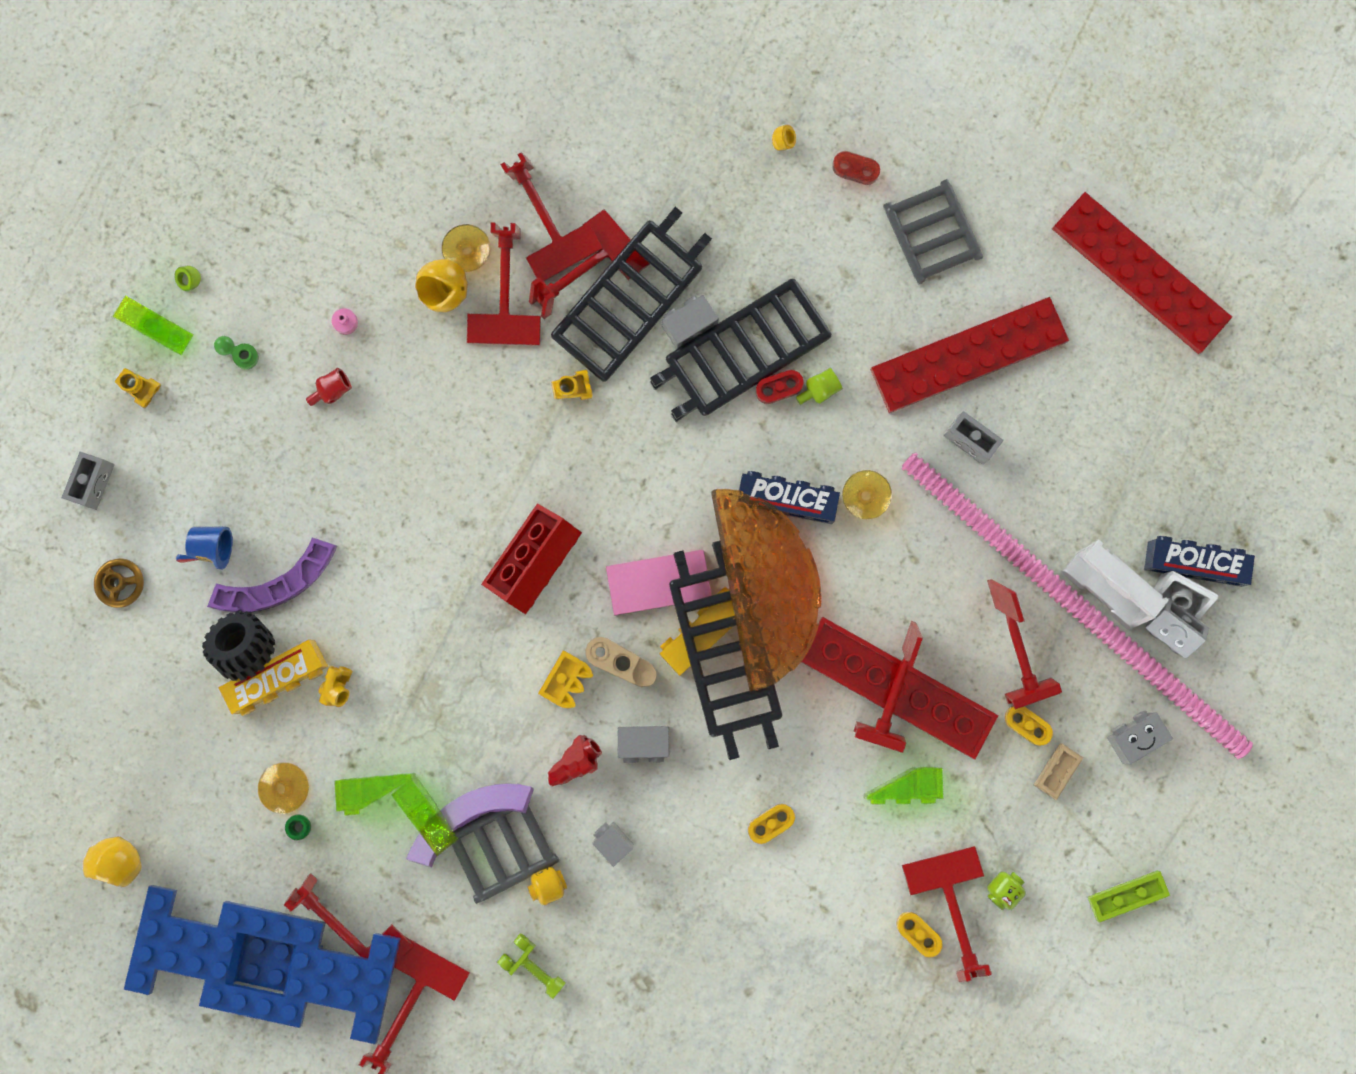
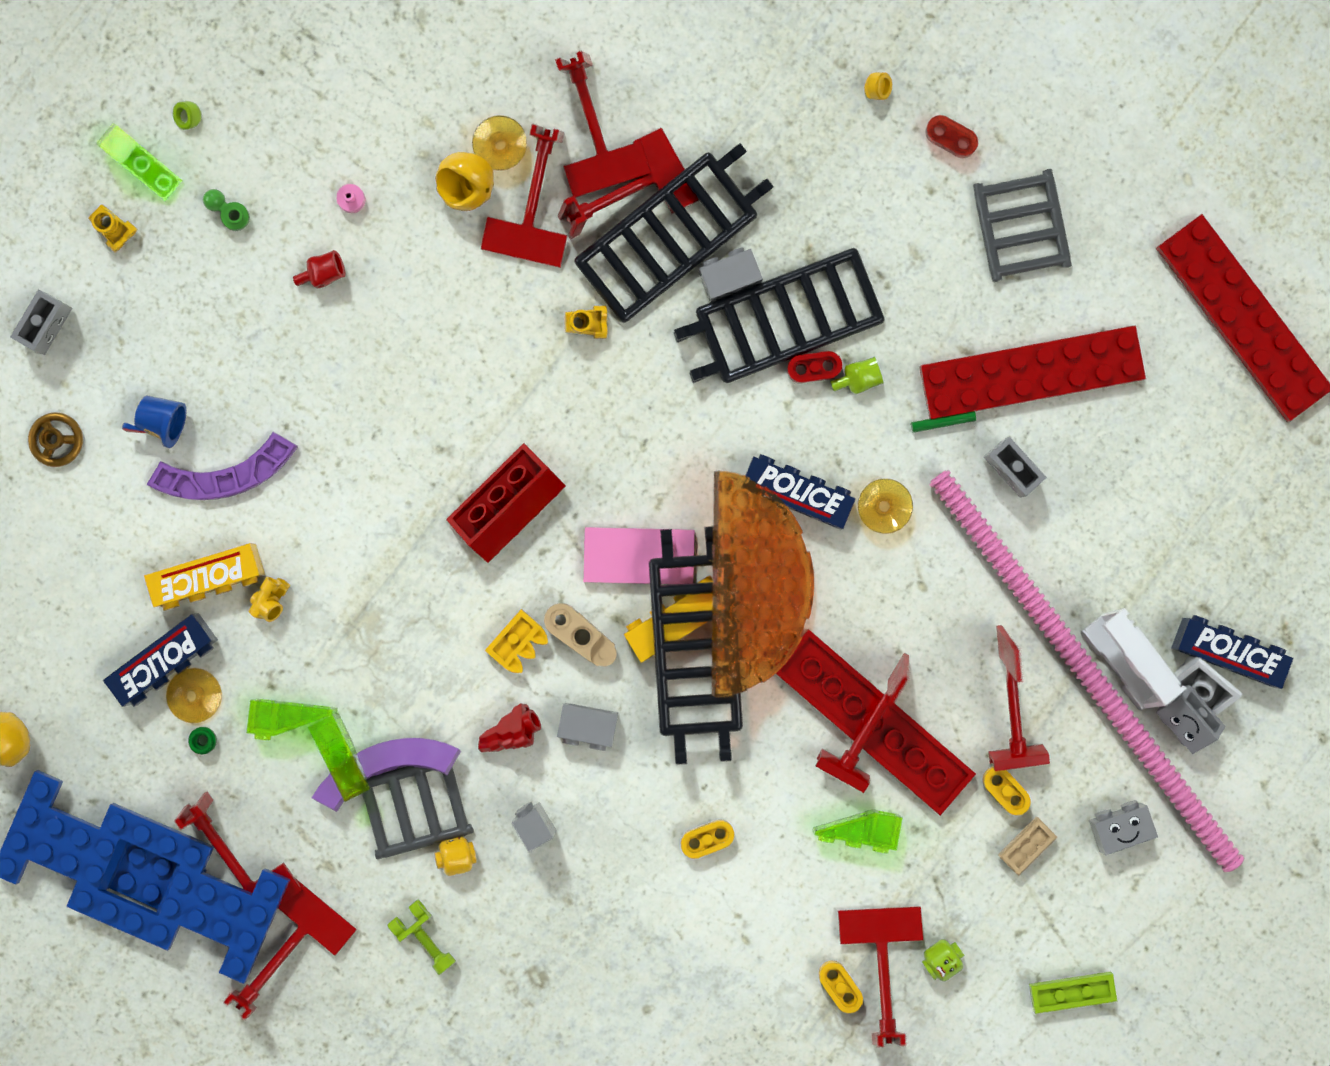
camera: 15 degrees right, 5 degrees up
(238, 645) = (163, 522): black tyre -> none
(247, 761) = (160, 660): none -> dark blue brick
(901, 412) = (929, 424): none -> green piece

